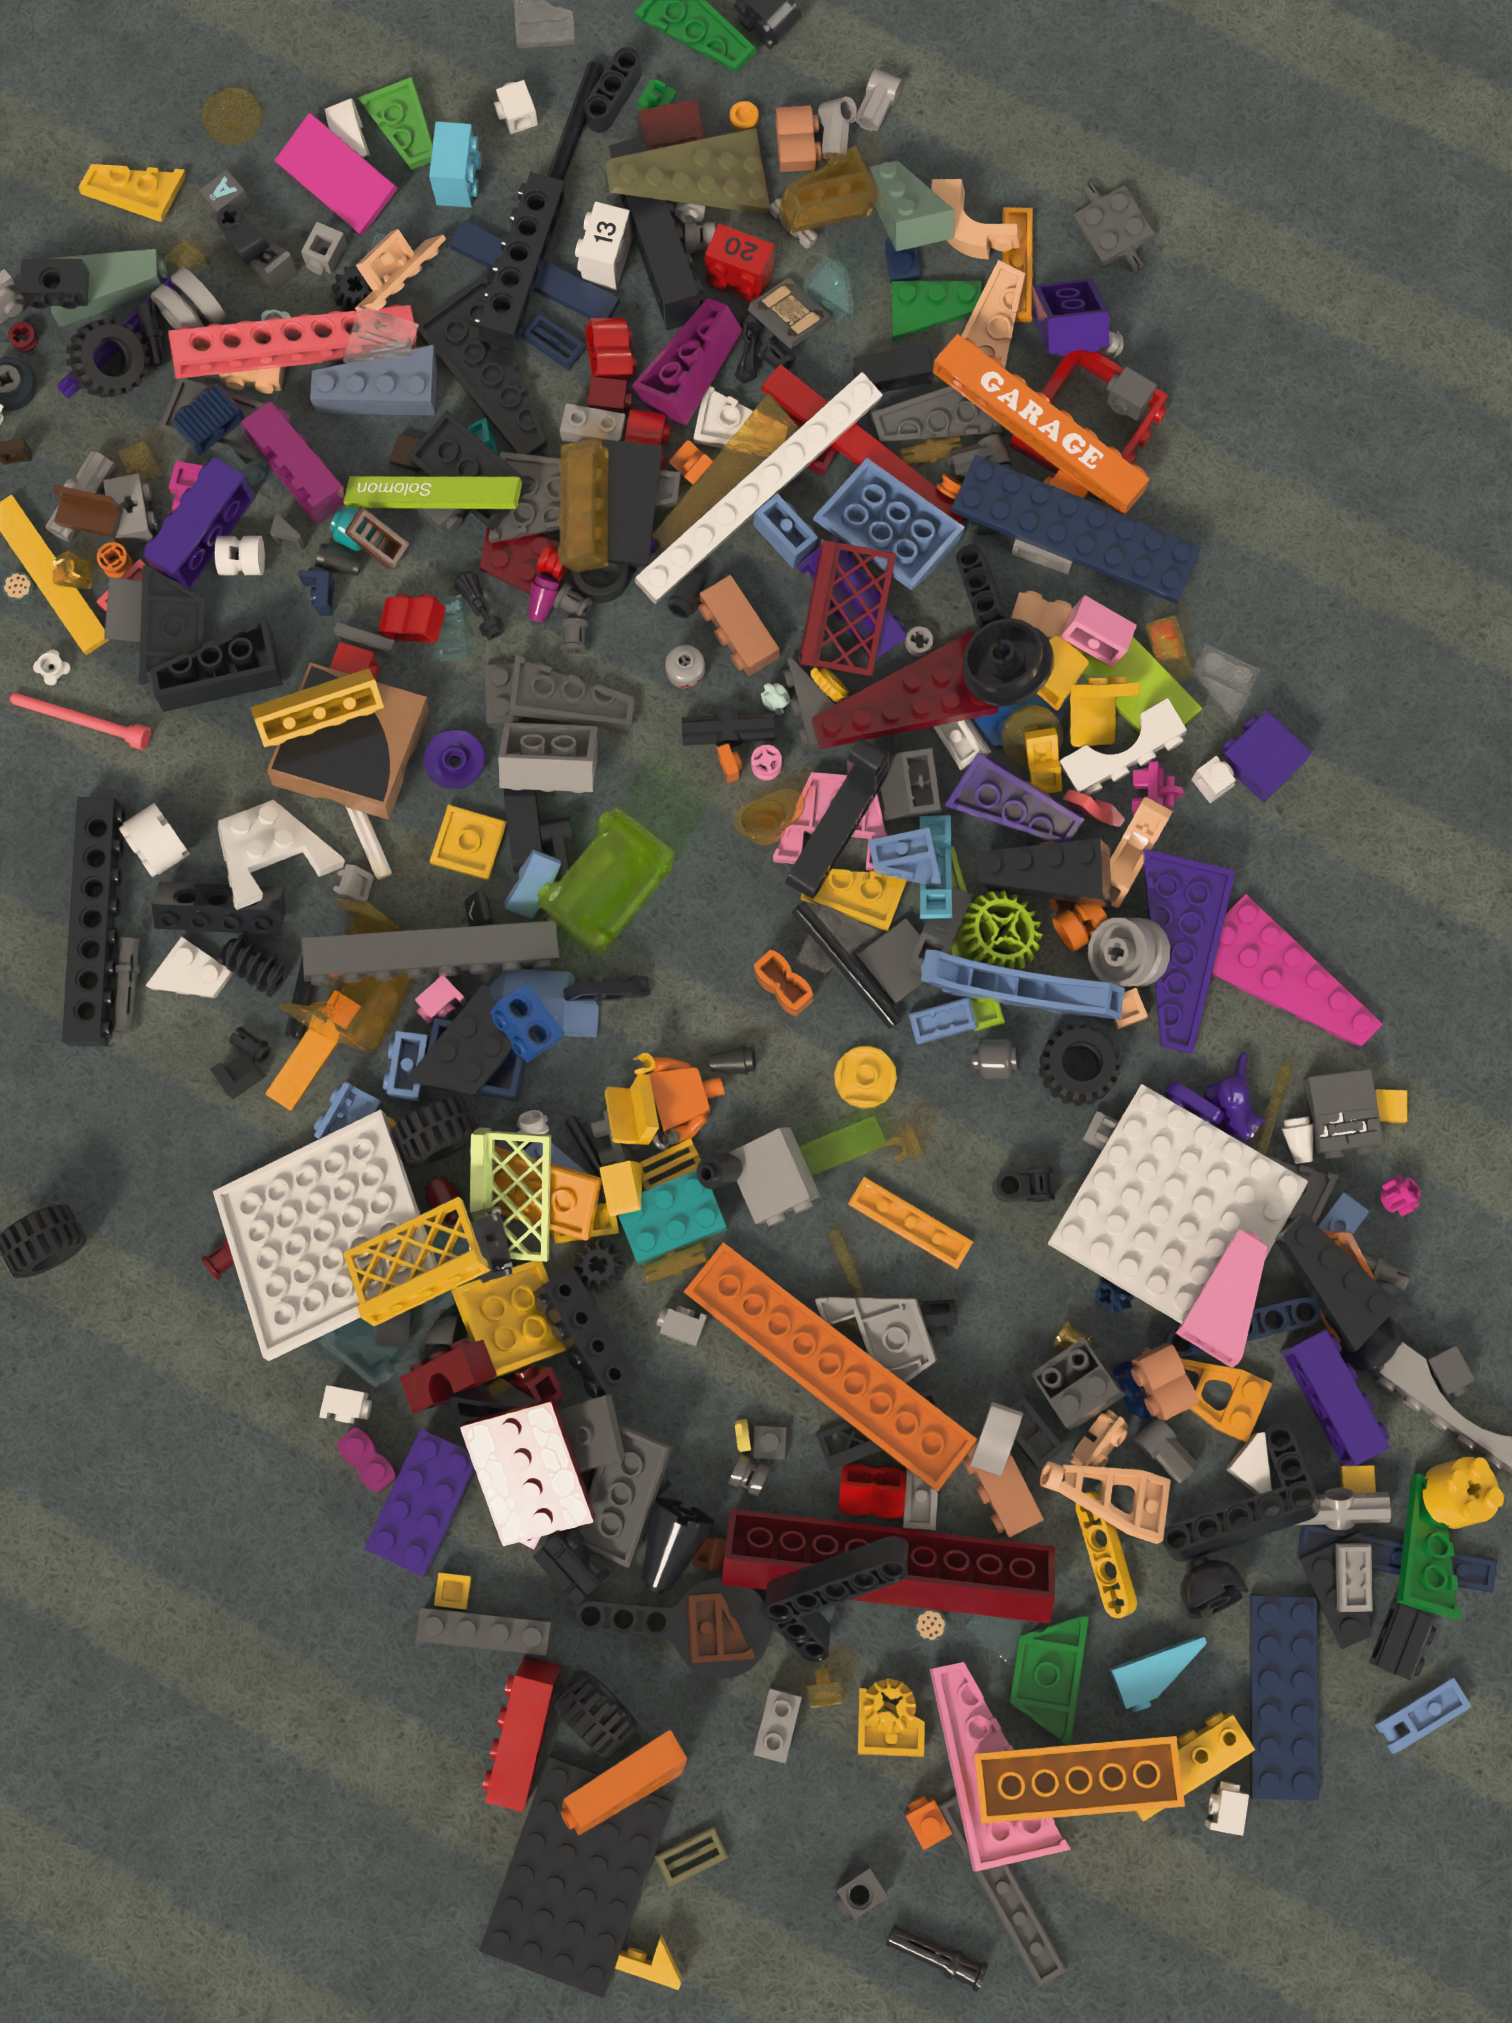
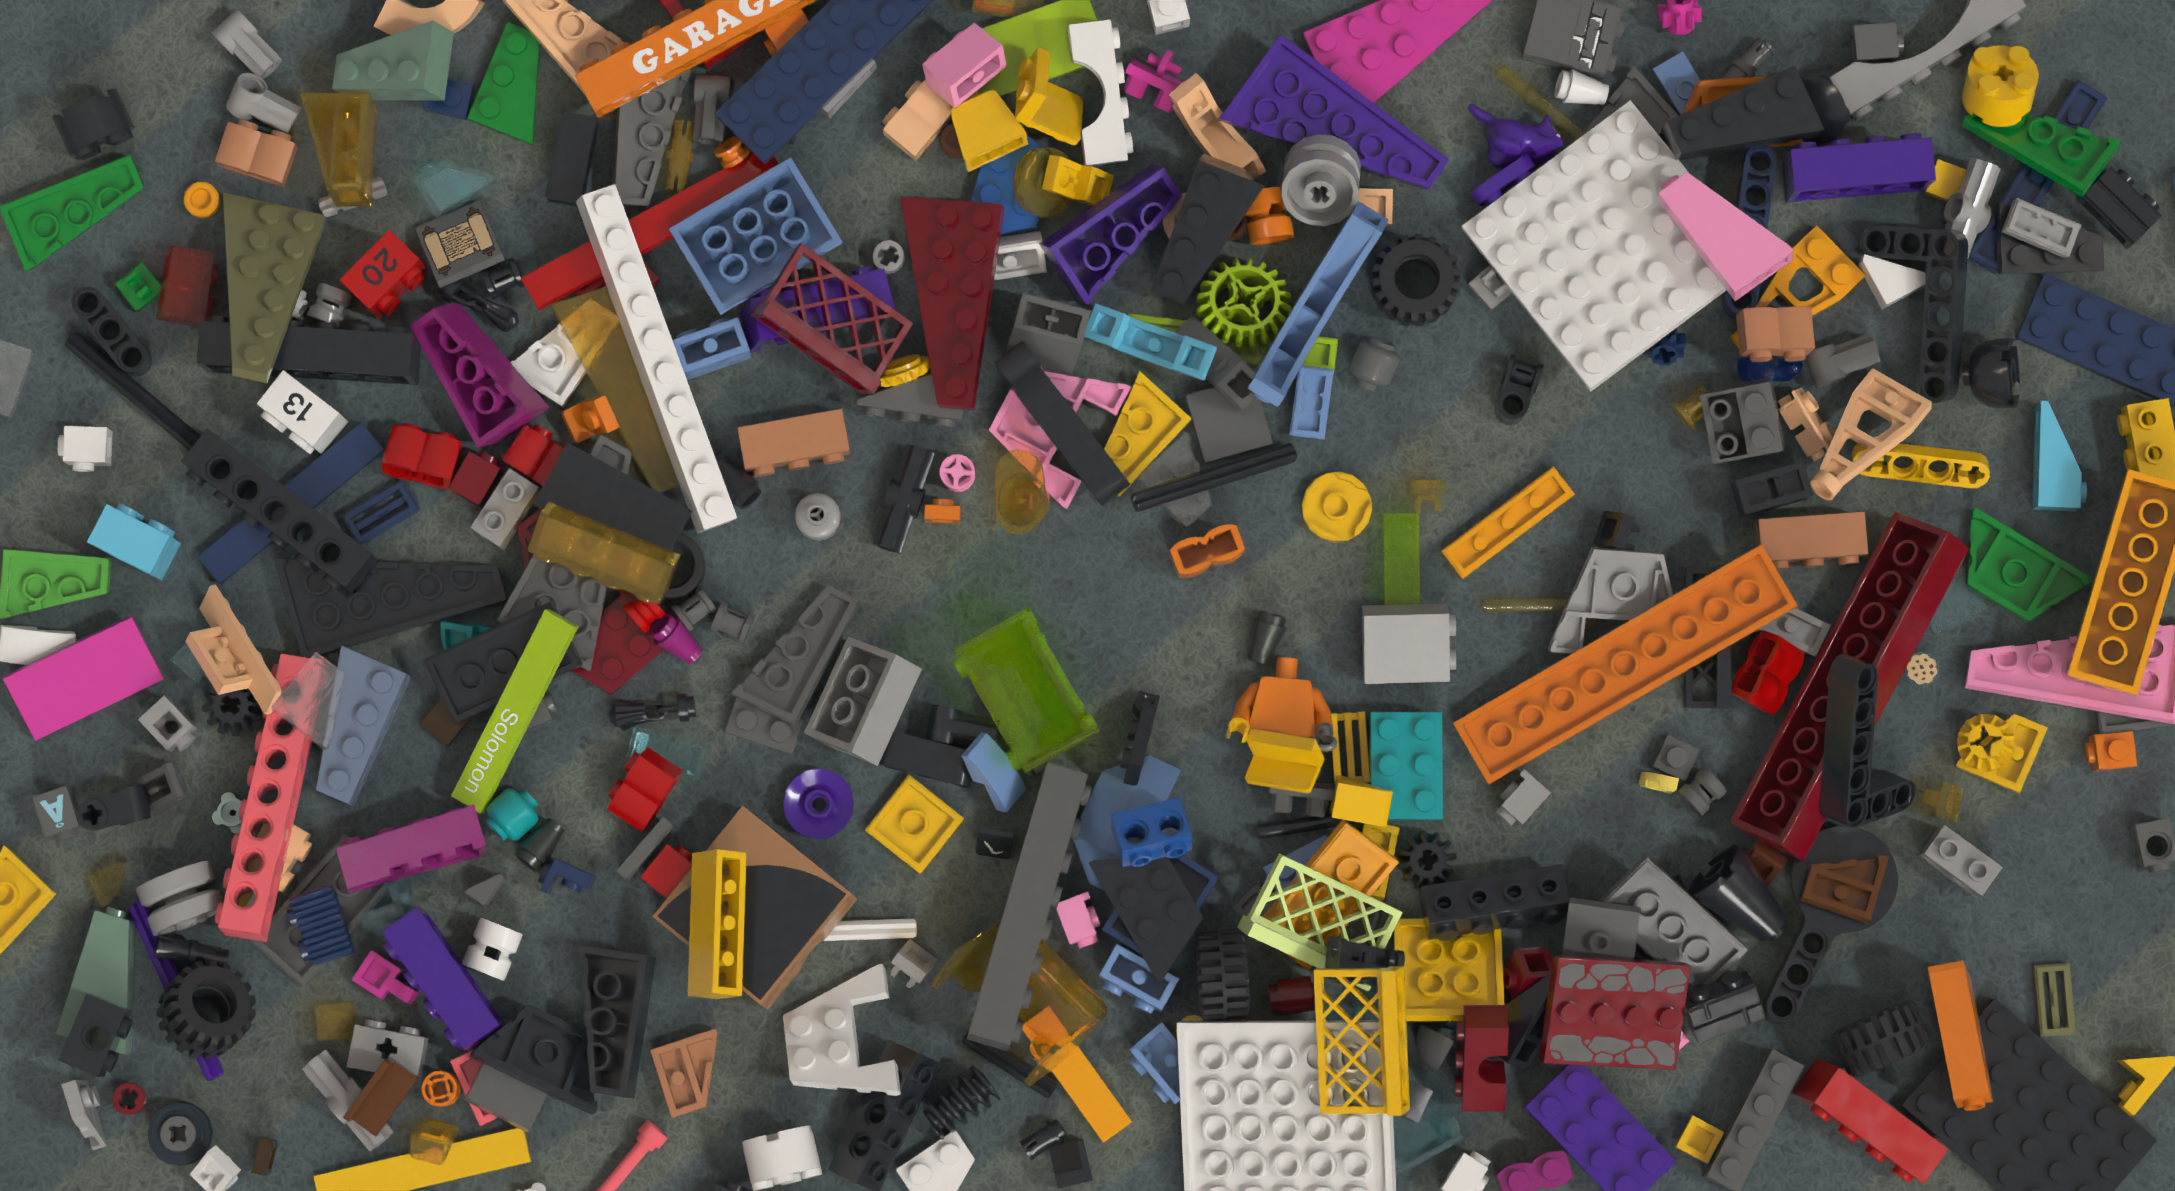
camera: 70 degrees left, 5 degrees up
(199, 743) = (686, 1071): none -> nougat wing
(395, 550) = (555, 779): reddish brown slope -> none
(533, 1122) = (1249, 873): white plate -> none
(675, 1263) = (1455, 781): clear yellow pin -> none
(719, 1170) = (1382, 696): black brick -> none
(775, 698) = (890, 435): light aqua plate -> none
(907, 857) = (1127, 367): medium blue wing -> none
(996, 1439) = (1768, 524): light grey slope -> none
(998, 638) = (932, 173): black beam -> none
(1095, 809) = (1150, 148): coral slope -> none

